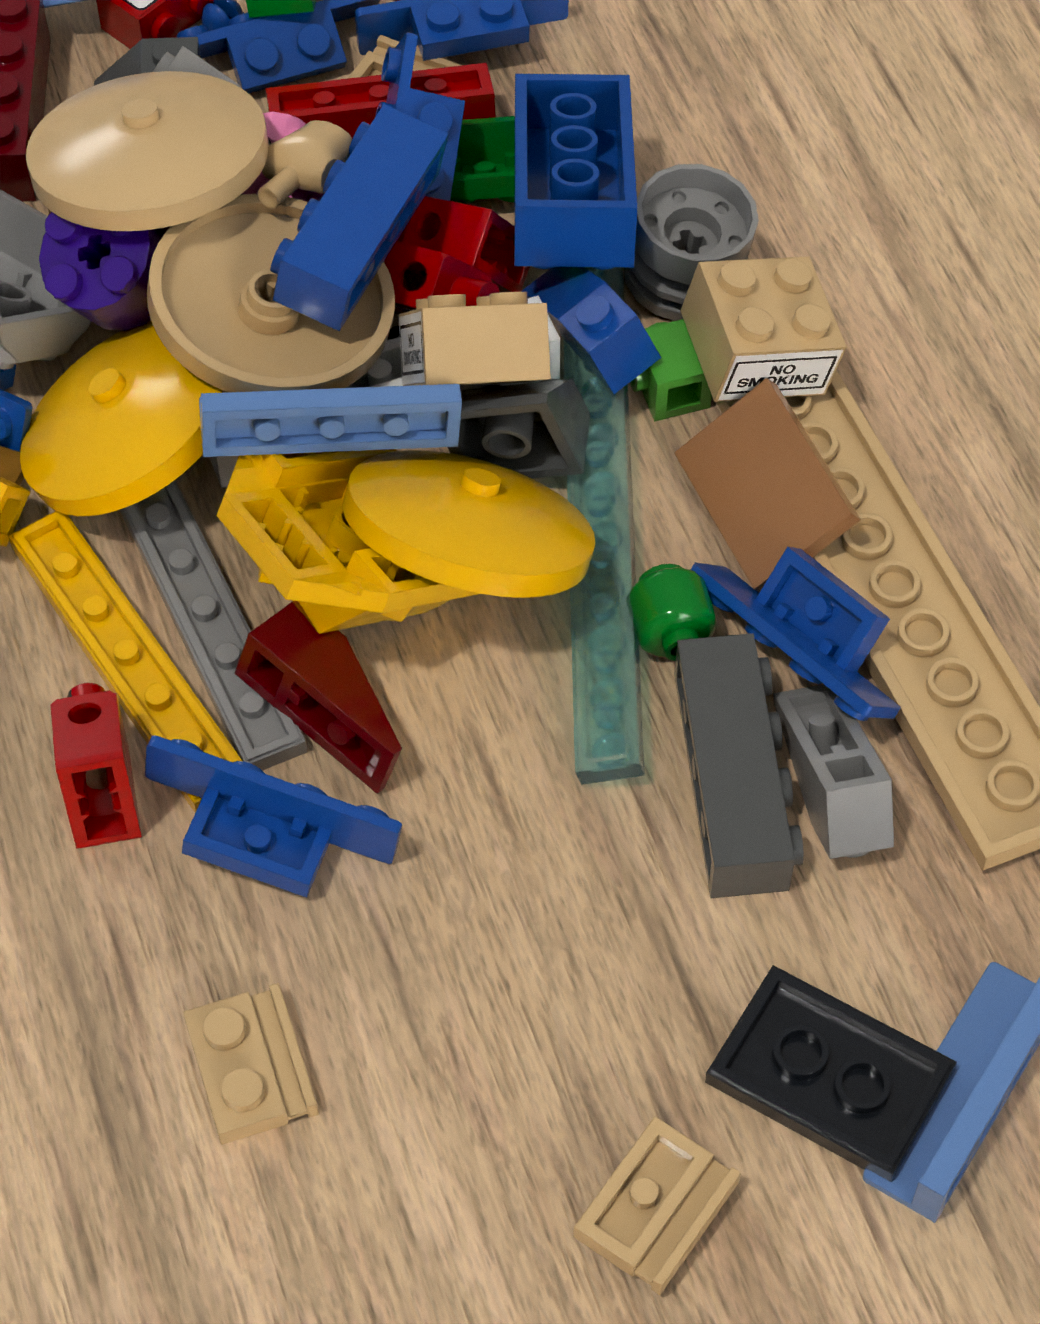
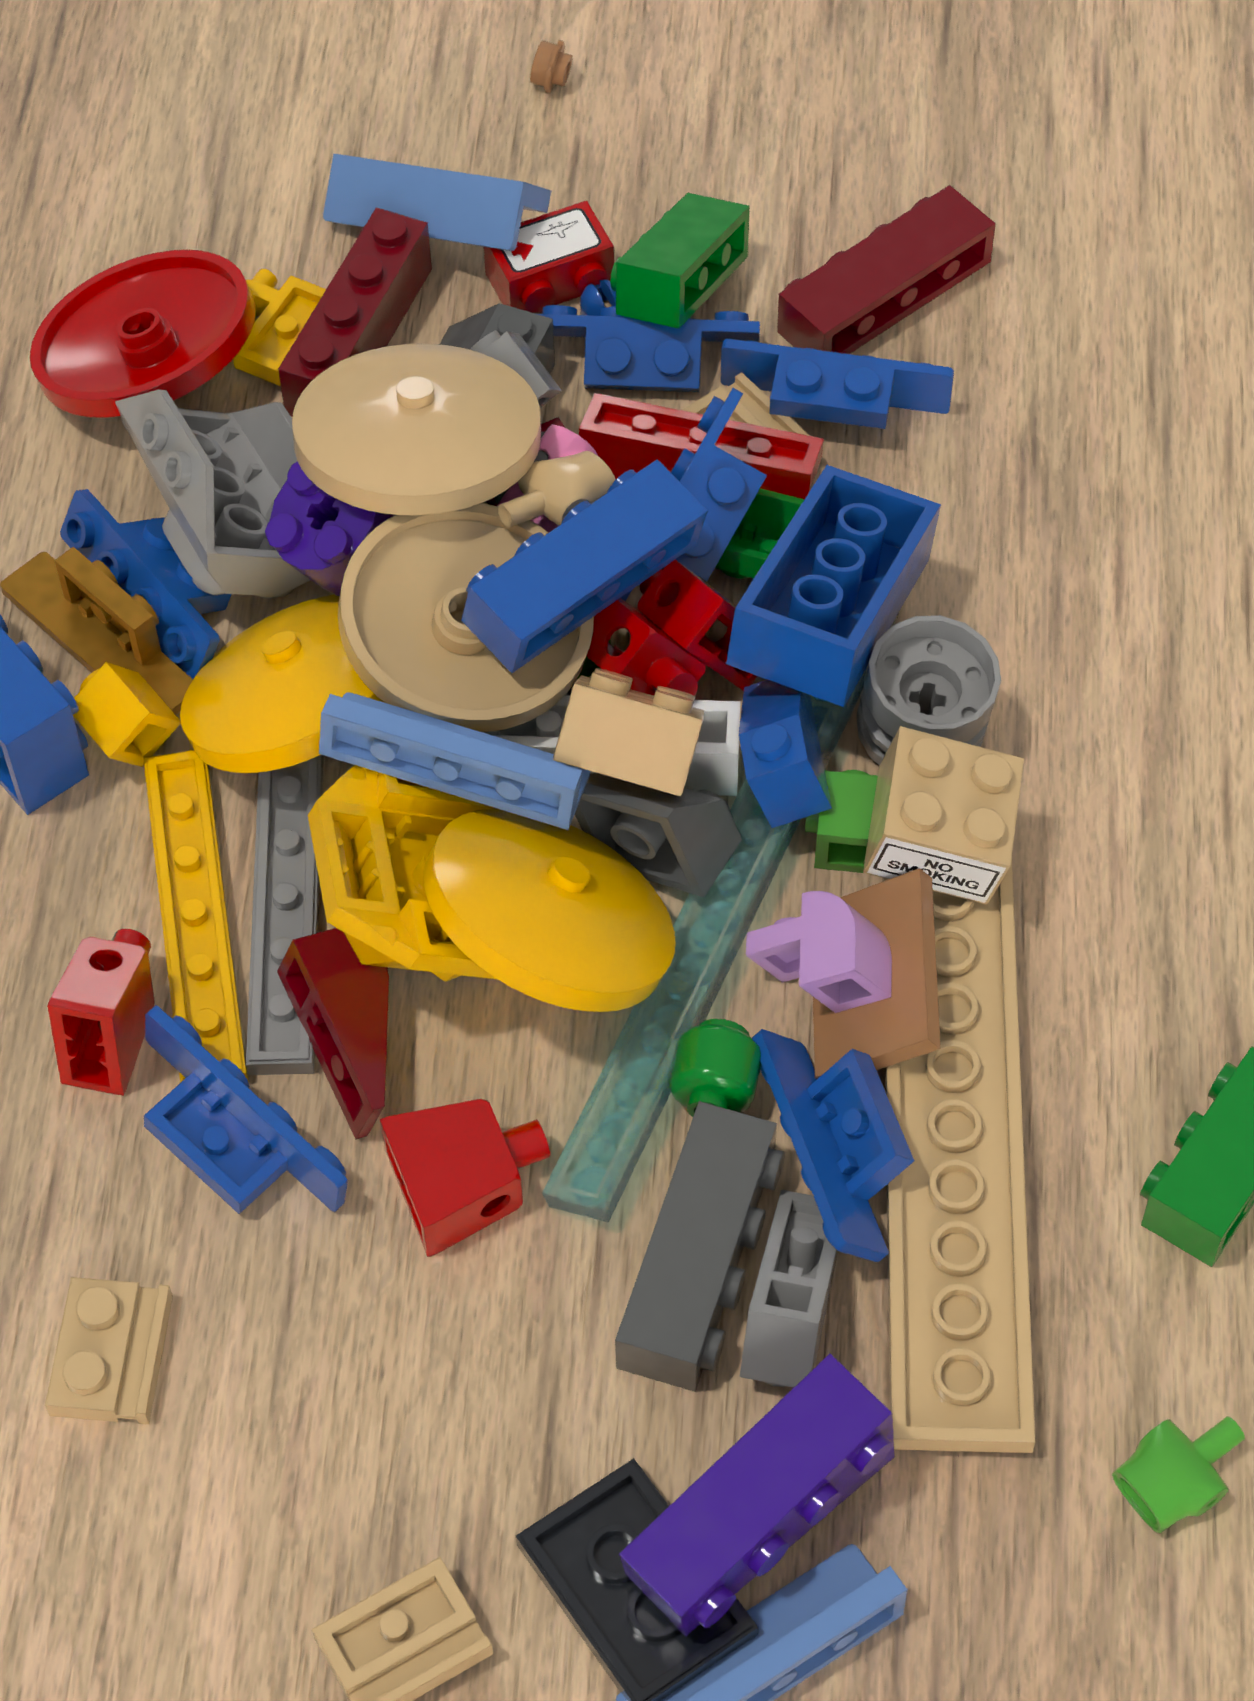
camera: 25 degrees right, 0 degrees up
(487, 780) = (459, 1168): none -> red torso
(720, 468) = (831, 951): none -> lavender brick
(913, 947) = (761, 1496): none -> dark purple wedge

